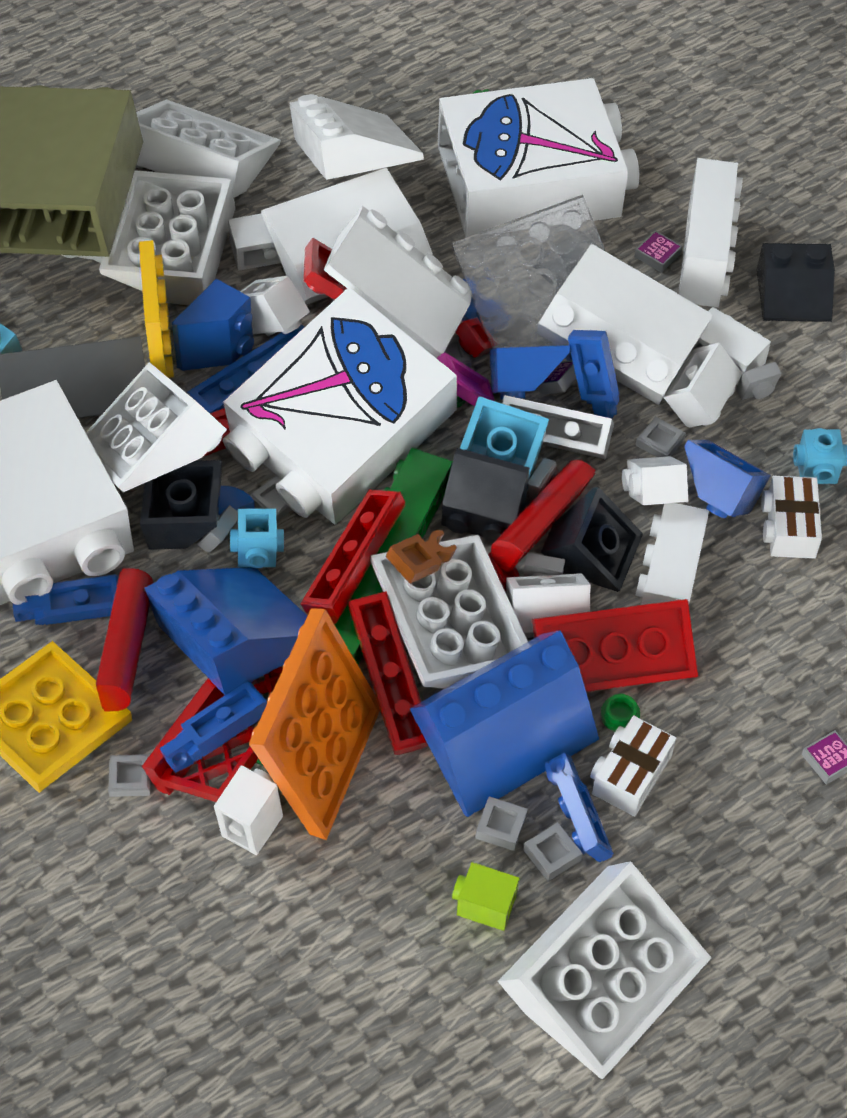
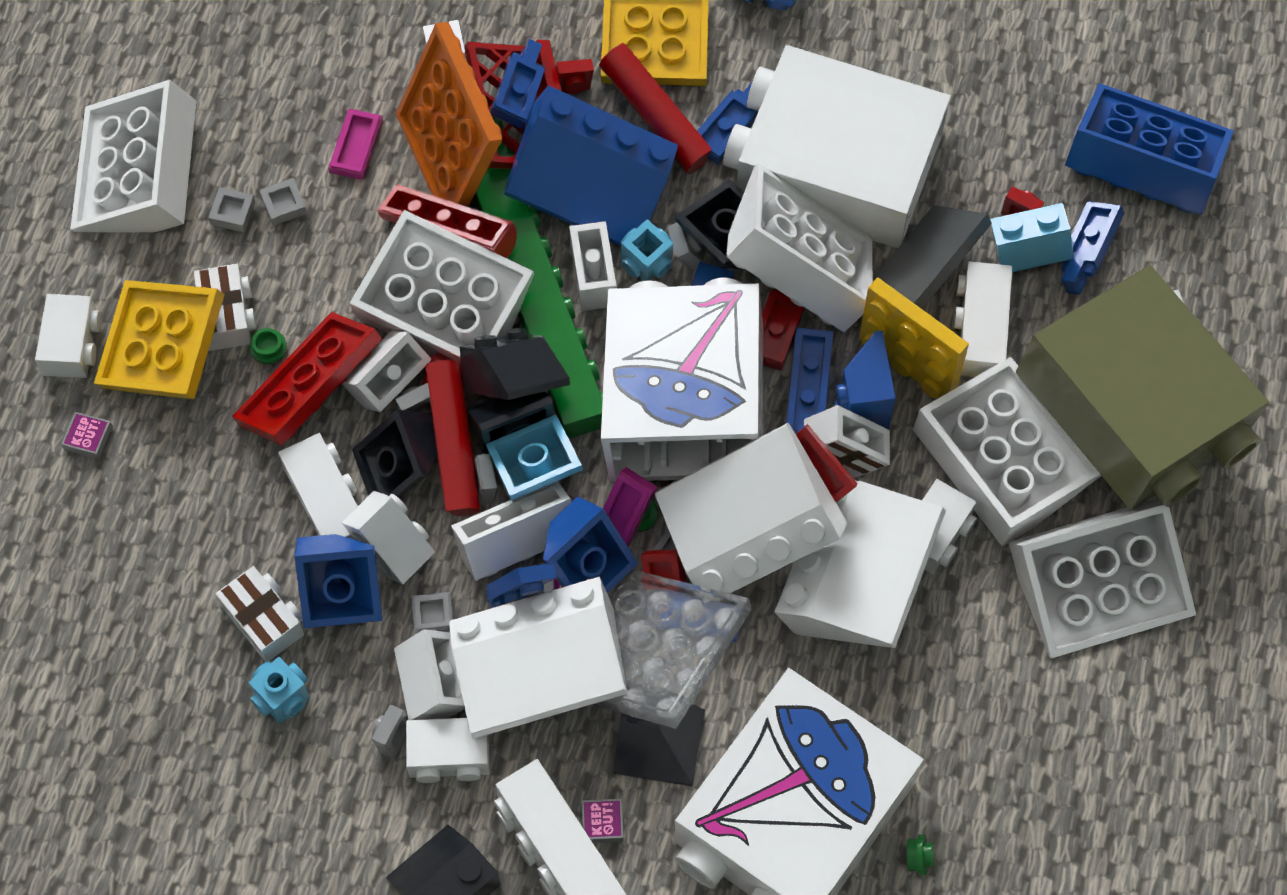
camera: 140 degrees right, 10 degrees up
(80, 318) = (983, 315): none -> white brick
(128, 776) = (566, 46): light grey tile -> none
(148, 727) = (575, 75): none -> red plate
(304, 556) = (592, 264): none -> white brick
(348, 138) = (968, 674): white slope -> none
(353, 551) = (553, 274): red brick -> none
(388, 833) = (355, 144): none -> dark pink tile
(419, 558) = (493, 286): dark orange plate -> none
(460, 498) = (511, 365): none -> black slope
(486, 895) = (250, 144): lime brick -> none
(508, 720) = (337, 248): blue slope -> none
(579, 807) = (233, 247): blue hinge -> none
(715, 763) = (159, 339): none -> yellow plate
(789, 844) = (67, 336): none -> white brick

